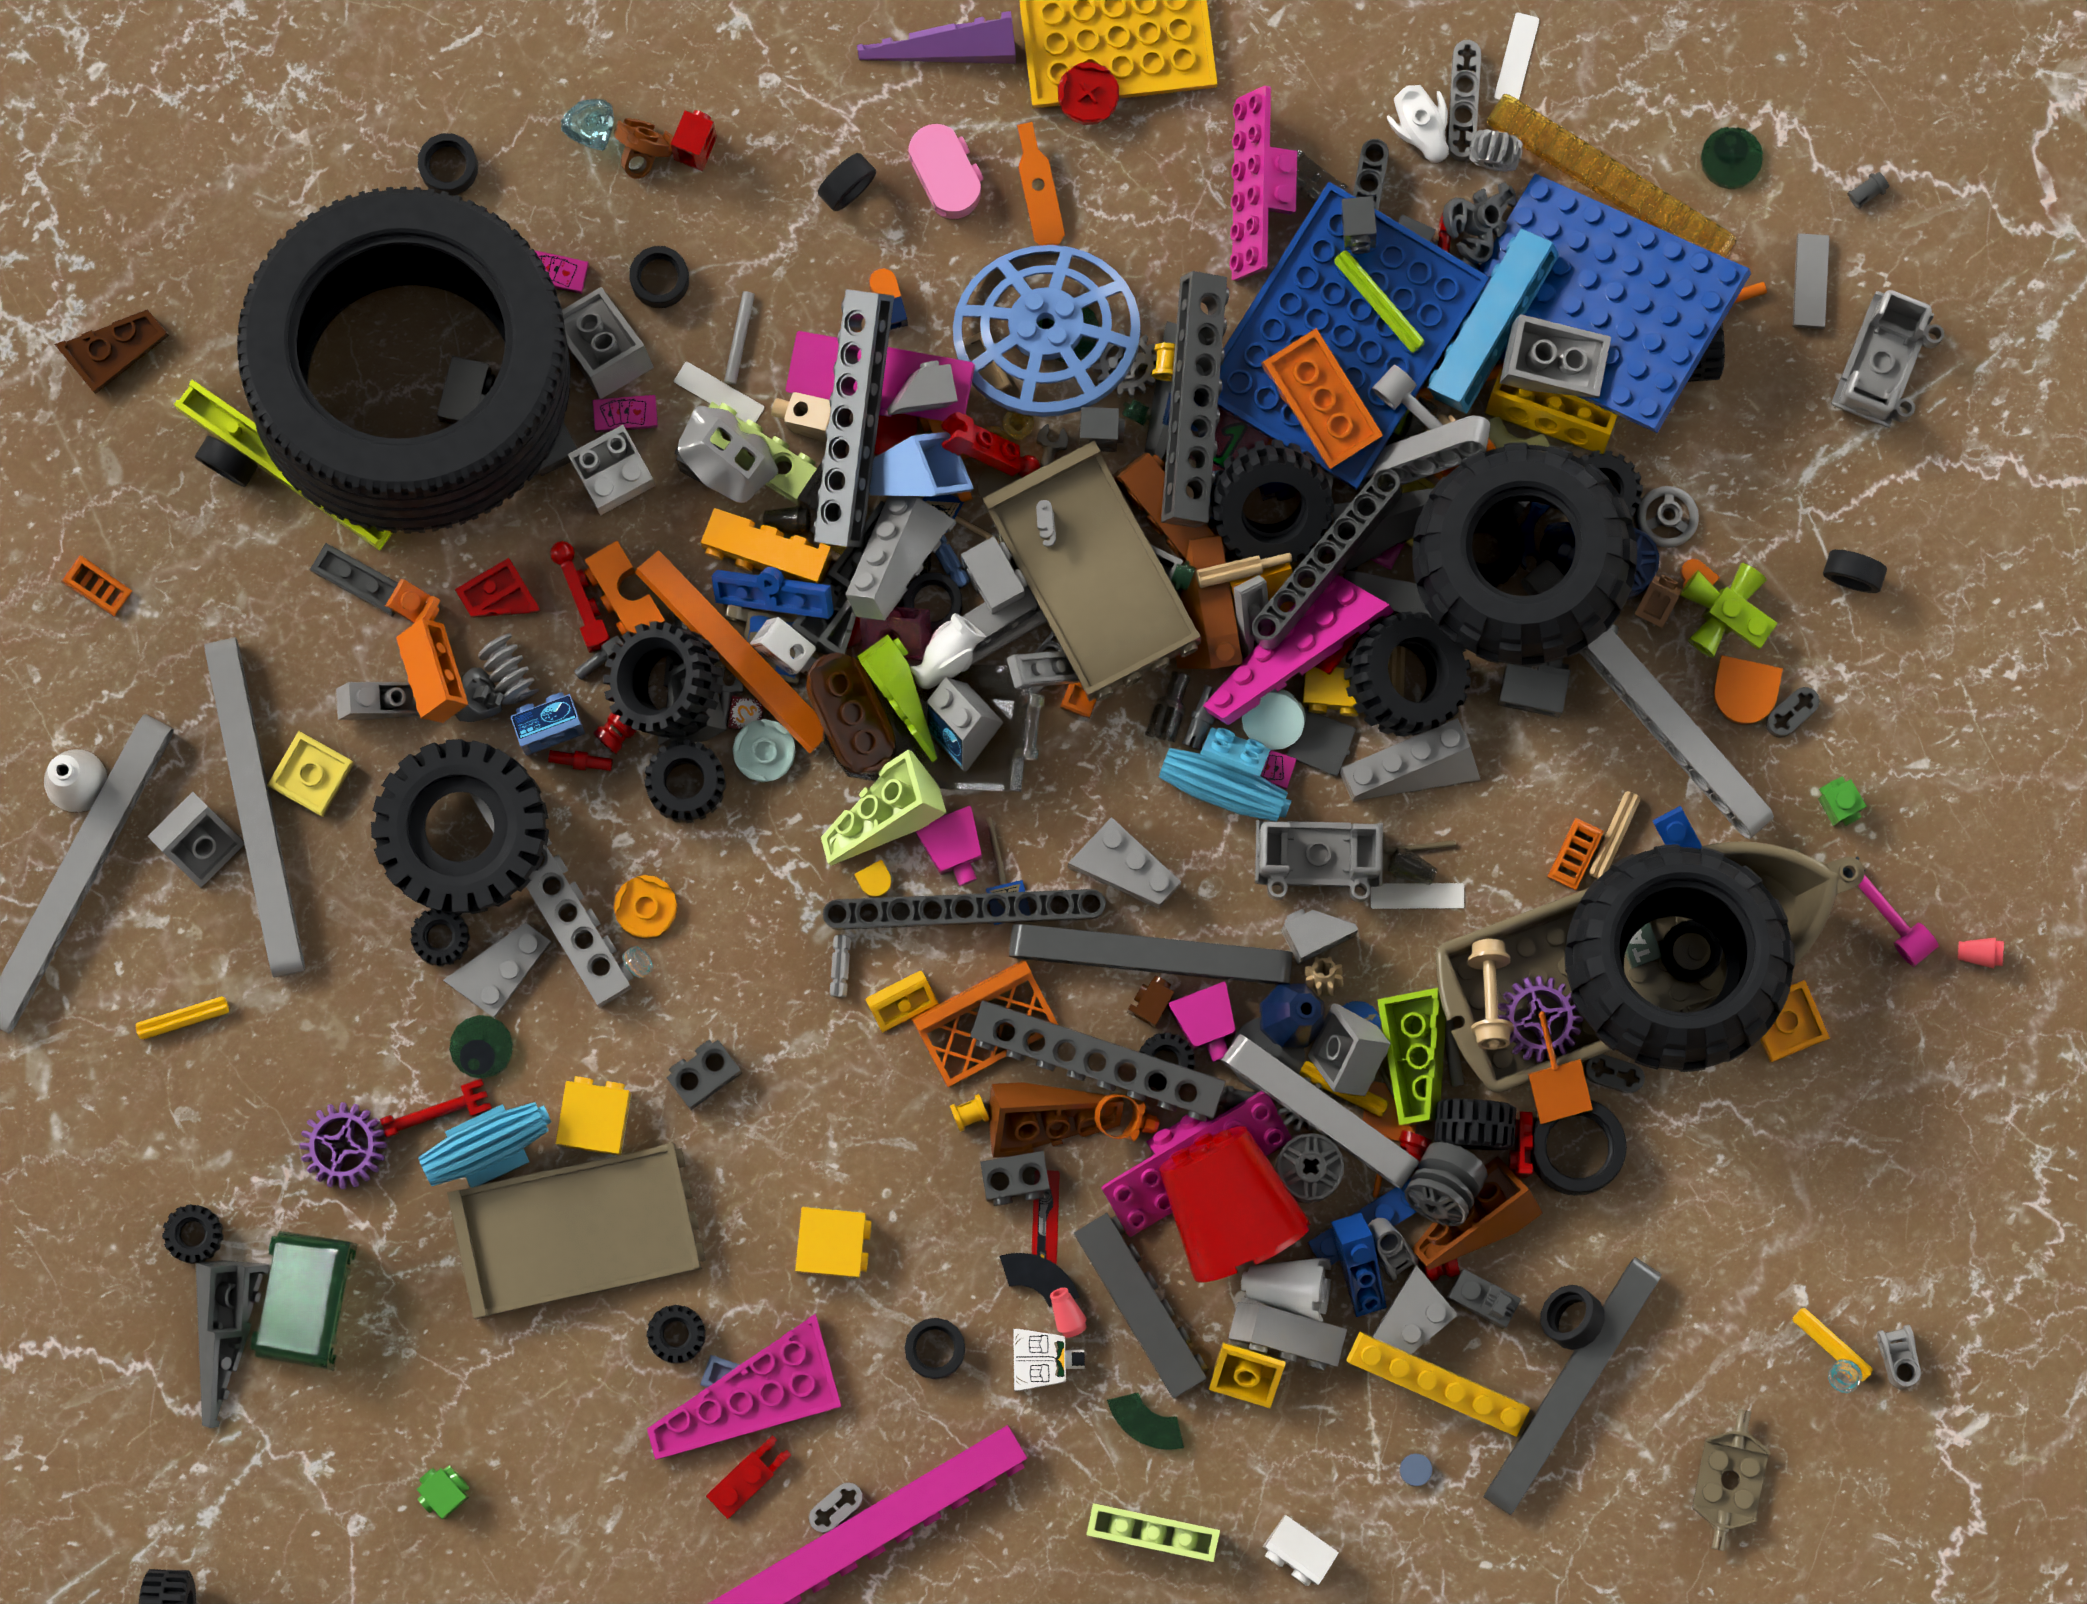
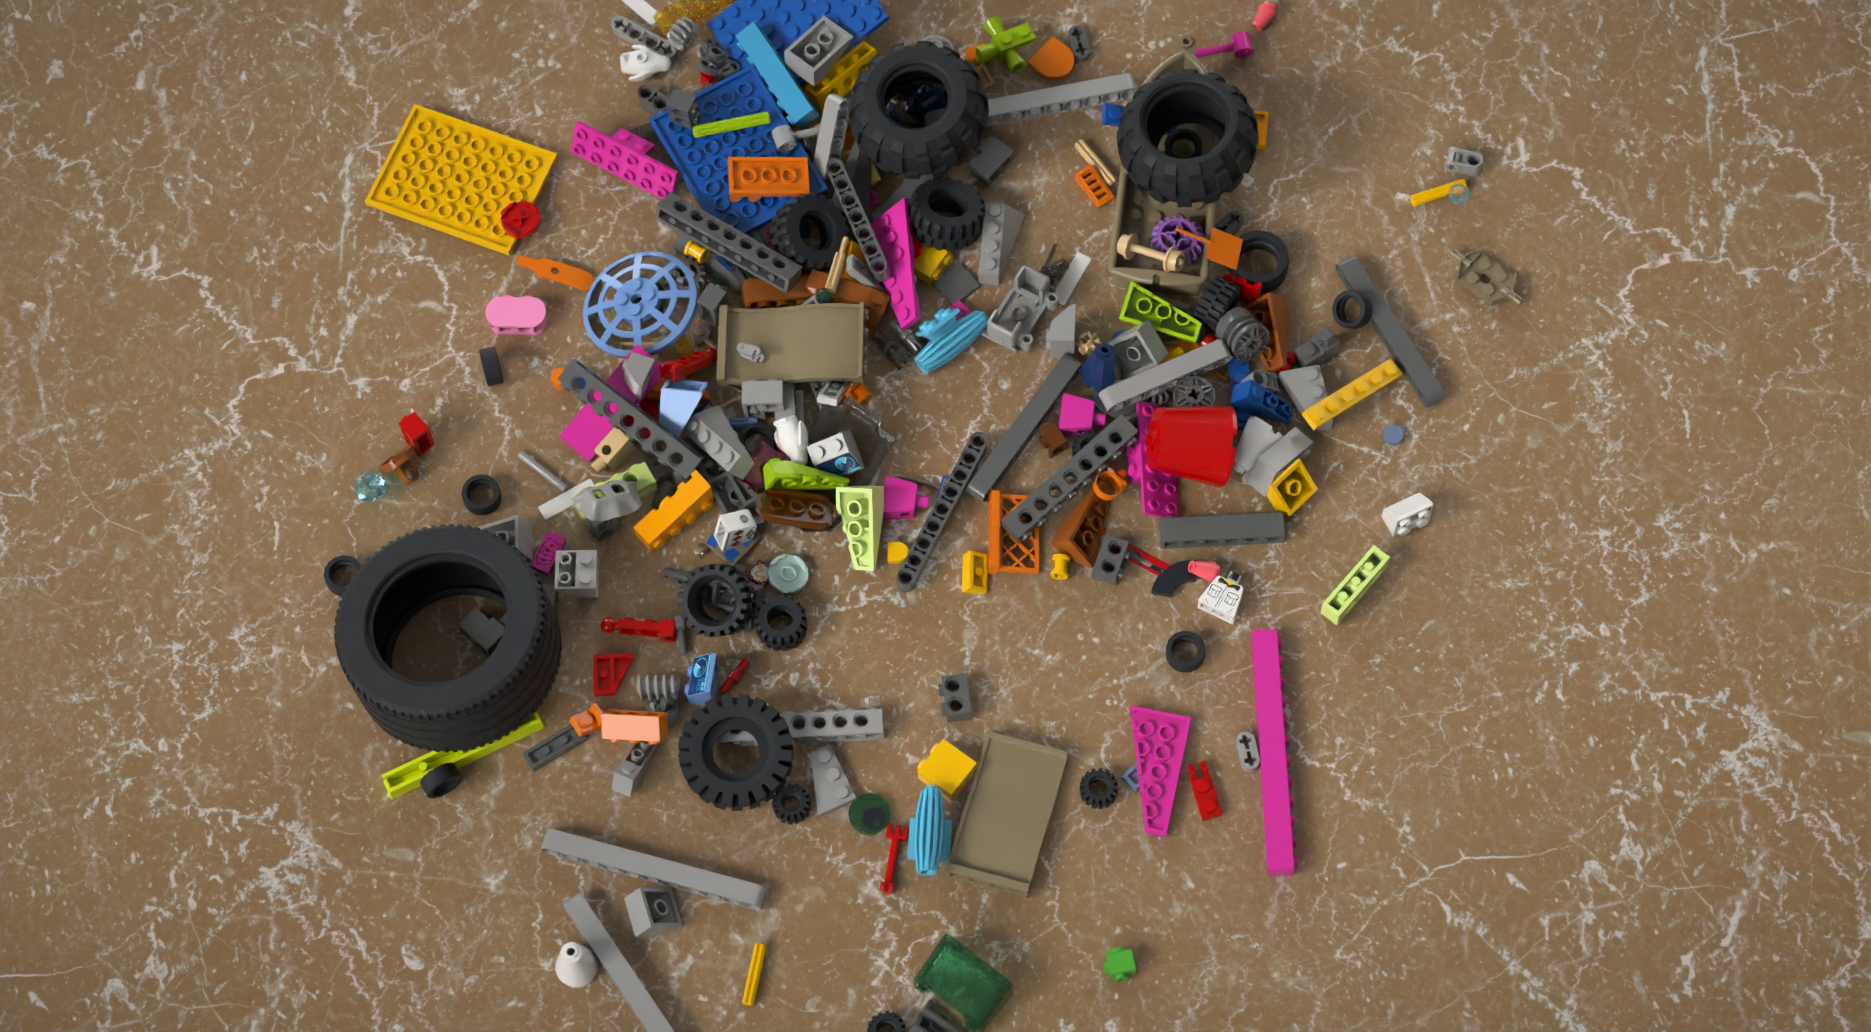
camera: 55 degrees left, 15 degrees down
(82, 562) = (464, 889): orange slope -> none
(111, 350) = (334, 815): reddish brown wing -> none
(310, 774) = (653, 828): light yellow plate -> none
(346, 1131) = (894, 906): medium lavender gear -> none
(608, 570) = (636, 607): orange arch -> none
(609, 737) = (729, 648): red wheel -> none
(645, 907) = (840, 684): light orange tile -> none
(732, 650) = (732, 556): orange tile -> none
(772, 593) = (701, 518): blue hinge -> none
(832, 1242) = (1093, 676): yellow piece -> none
(840, 966) = (936, 595): light grey axle -> none
(968, 42) = (454, 264): medium lavender wedge -> none
(1124, 864) = (967, 413): light grey wedge -> none
(1145, 1425) = (1291, 563): clear green tile -> none
(1276, 720) = (932, 296): light aqua tile -> none
(1841, 801) = (1142, 41): bright green brick -> none

